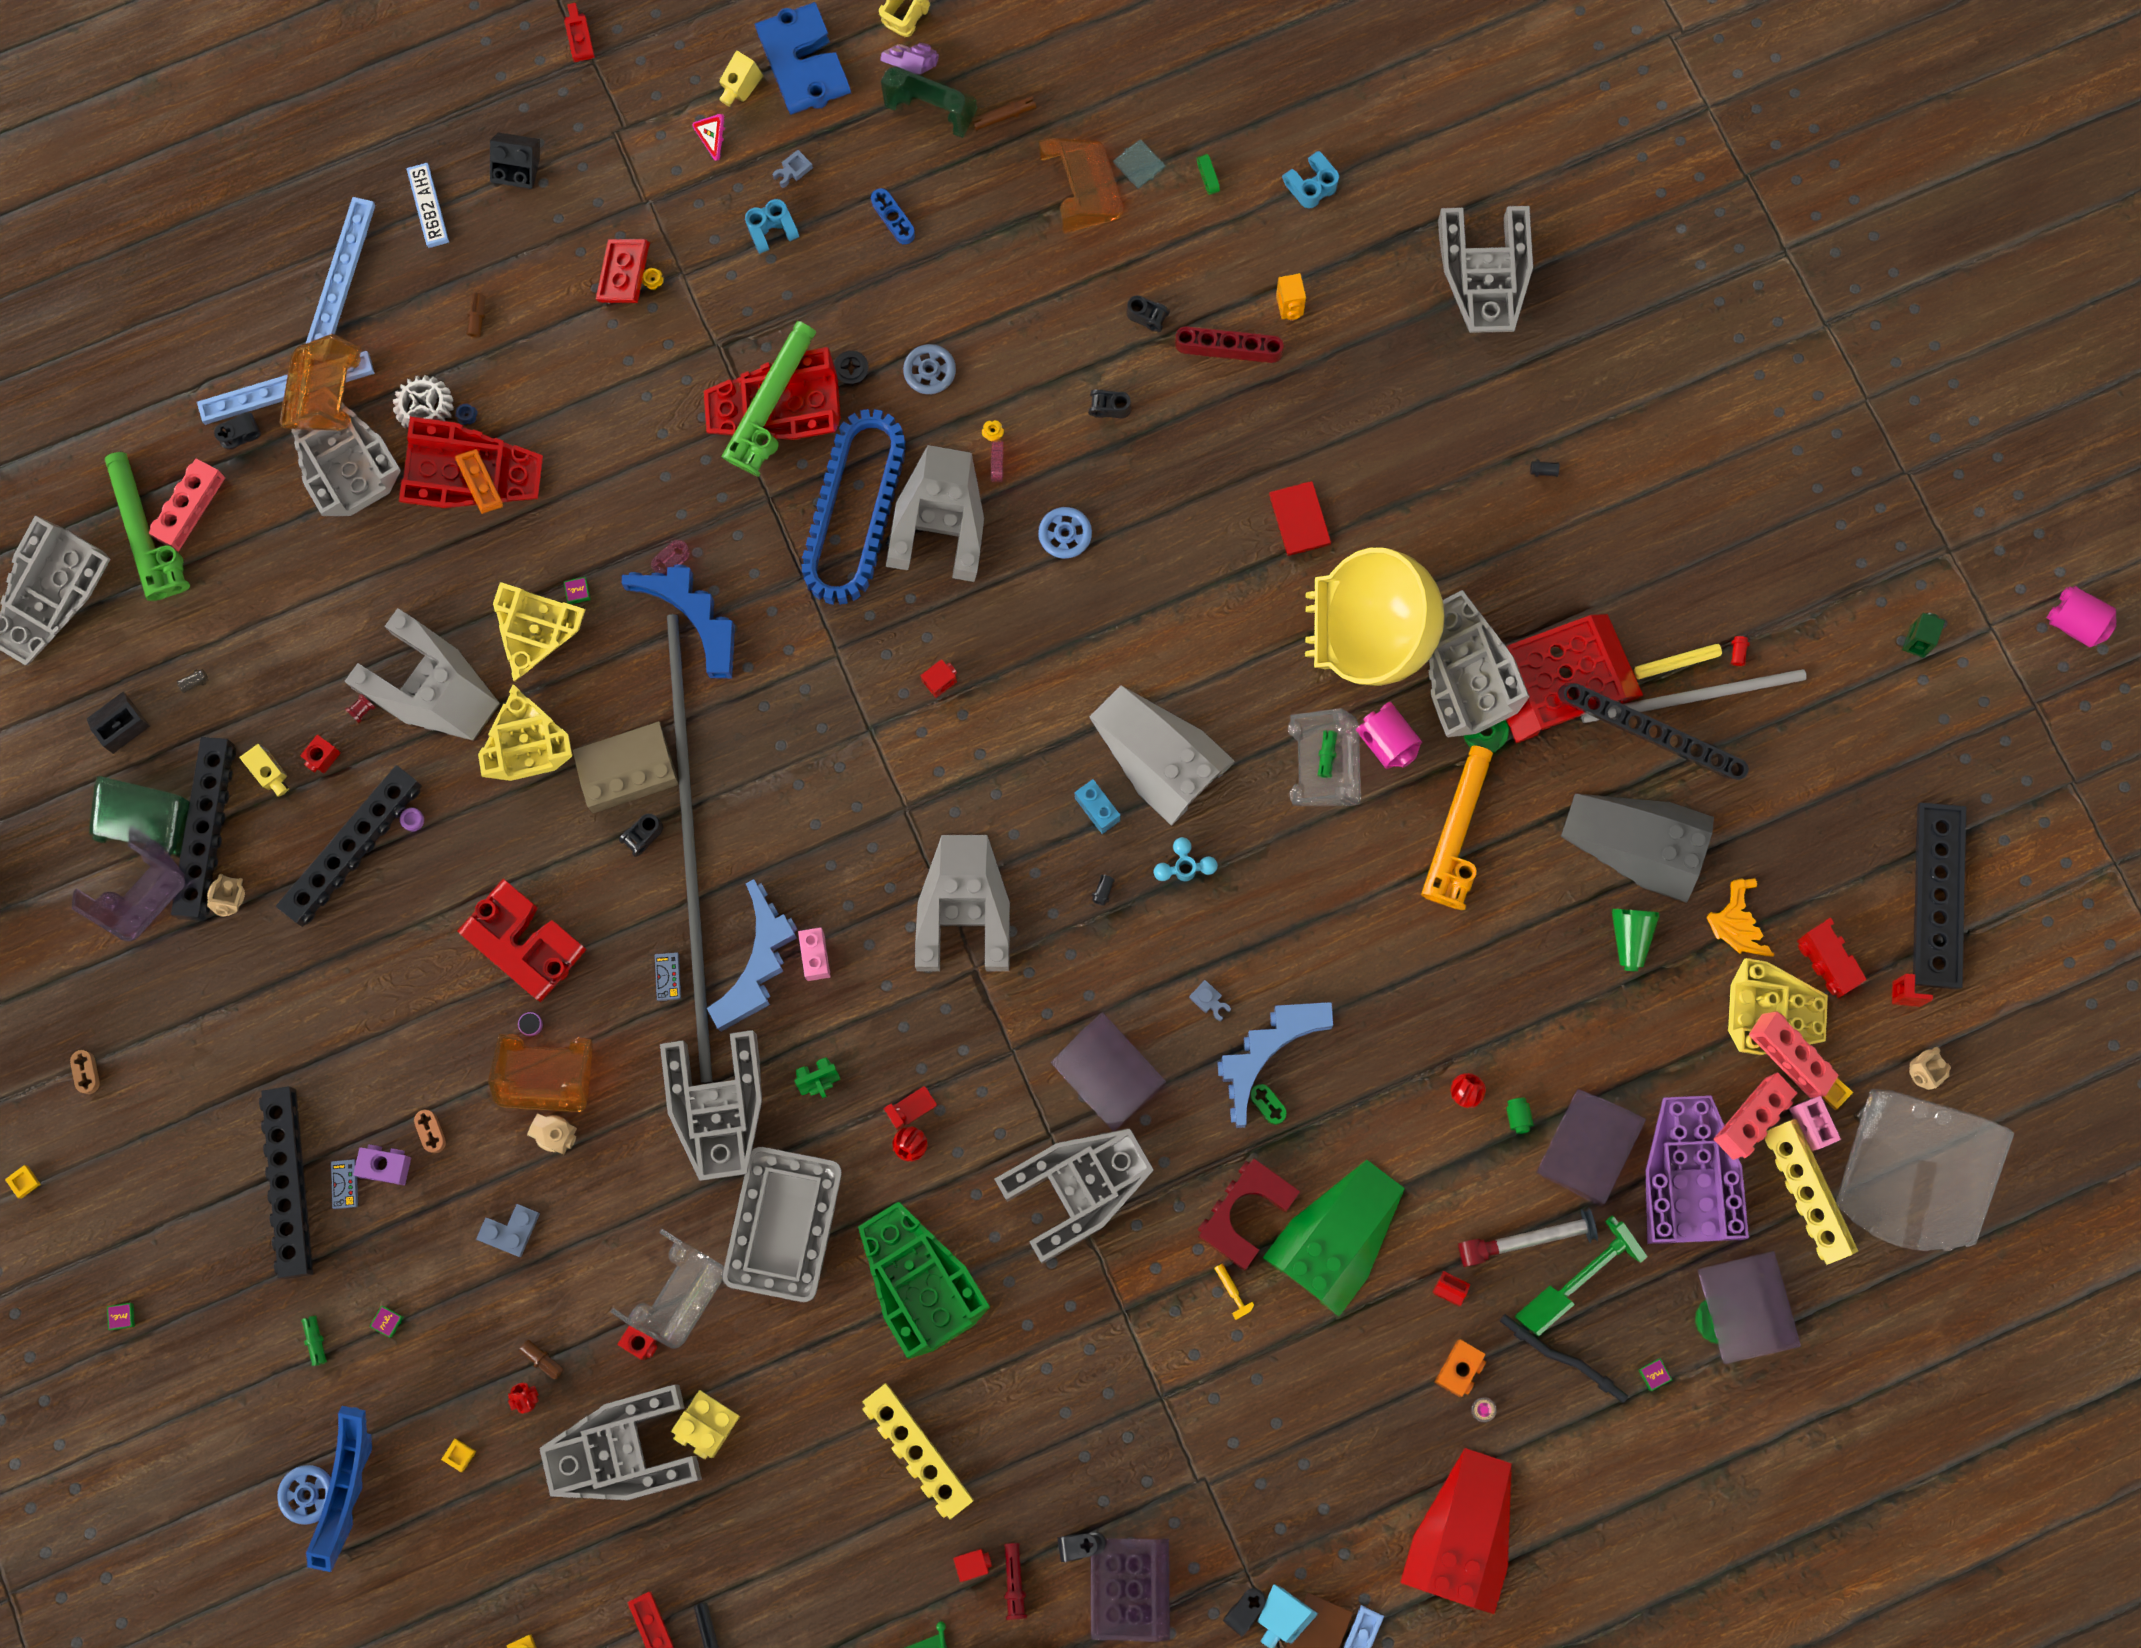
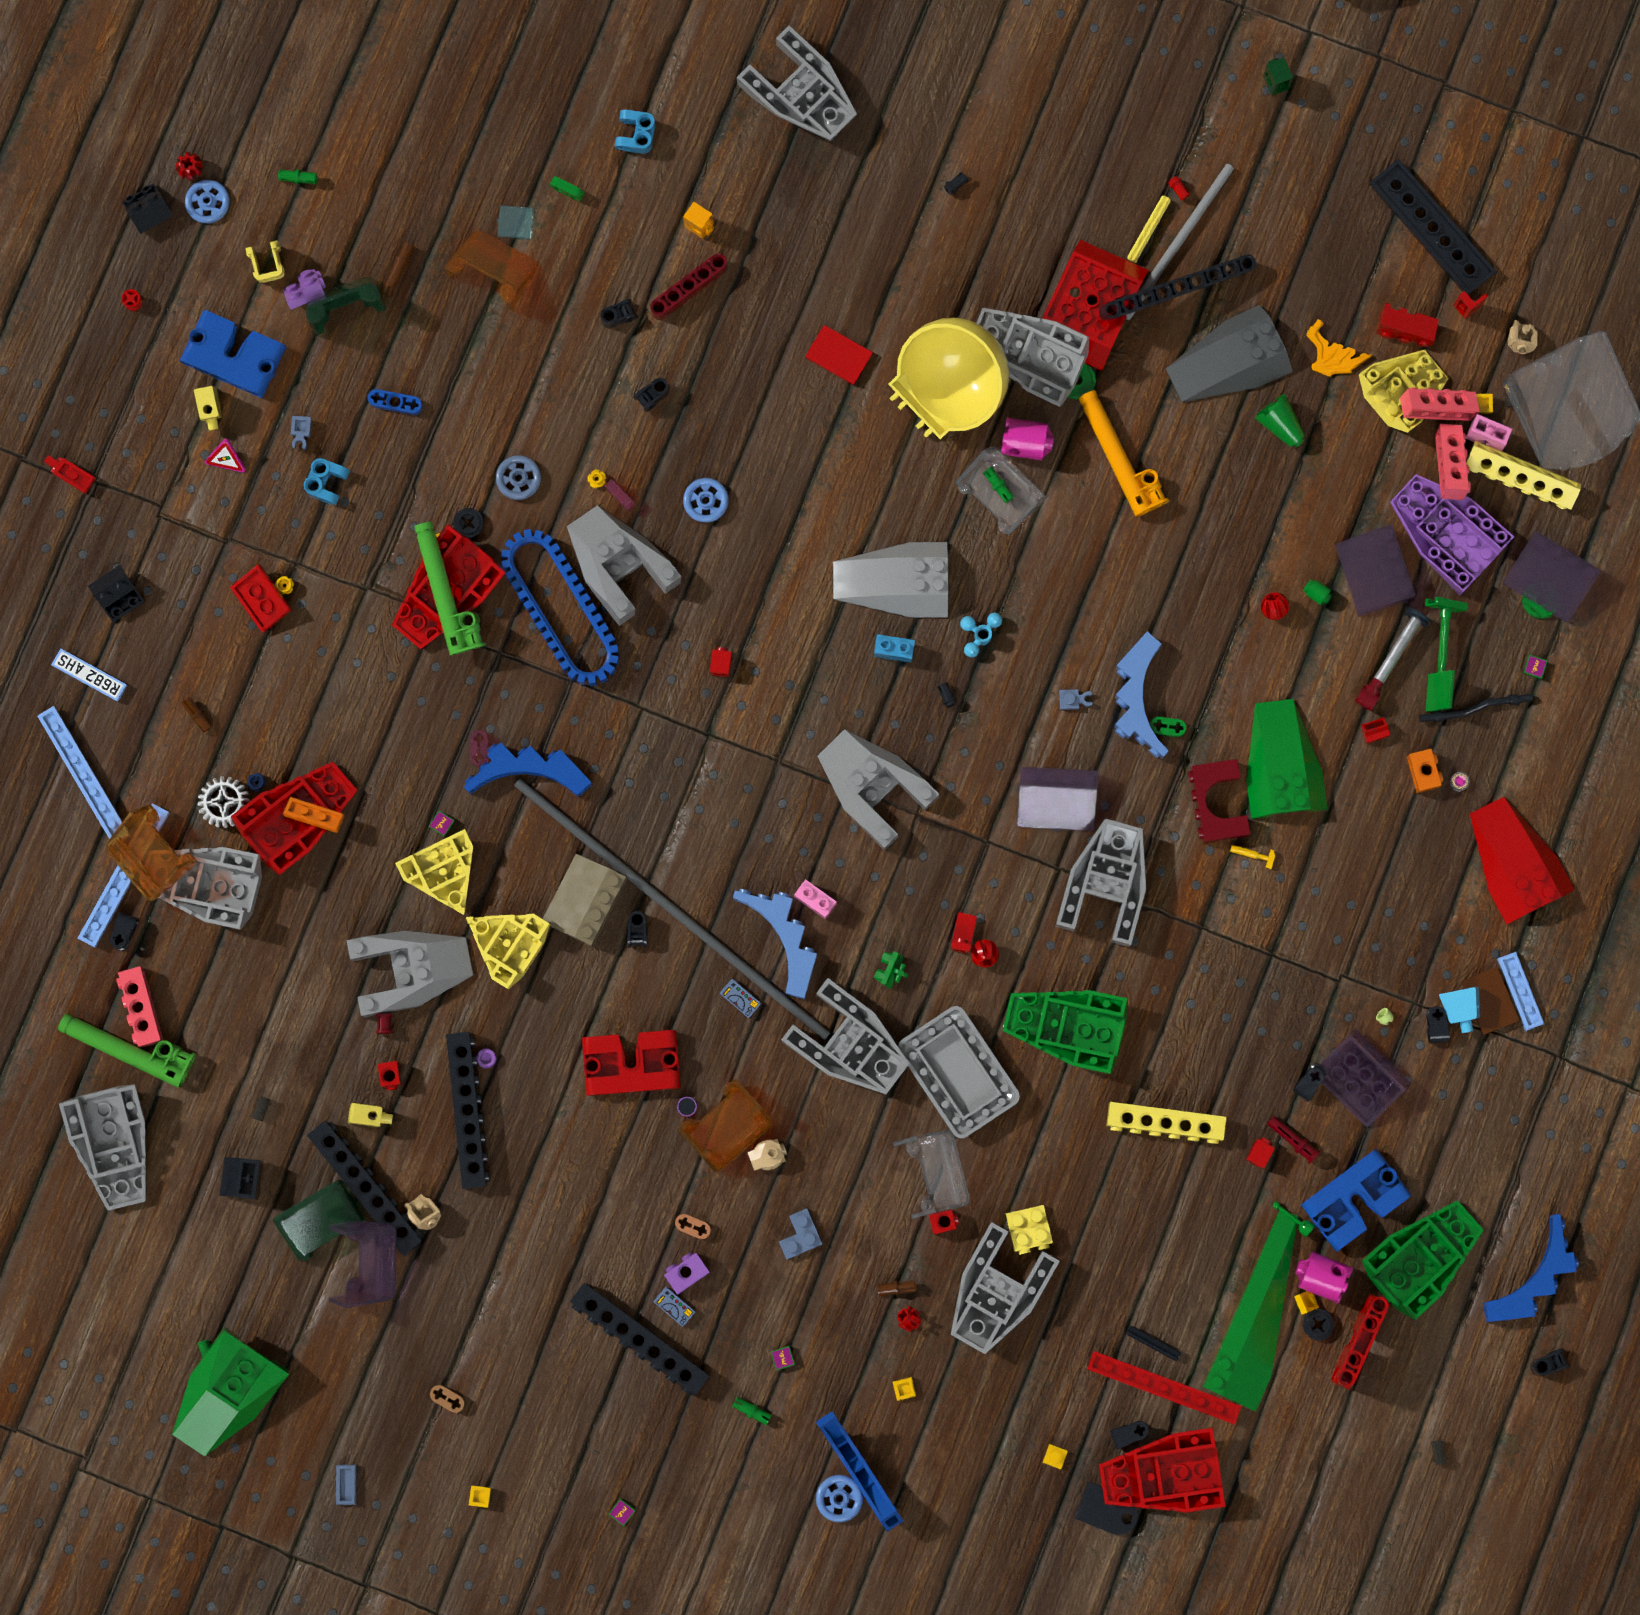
camera: 45 degrees left, 5 degrees up
(1206, 1554) = (1384, 1016): none -> yellowish green hinge

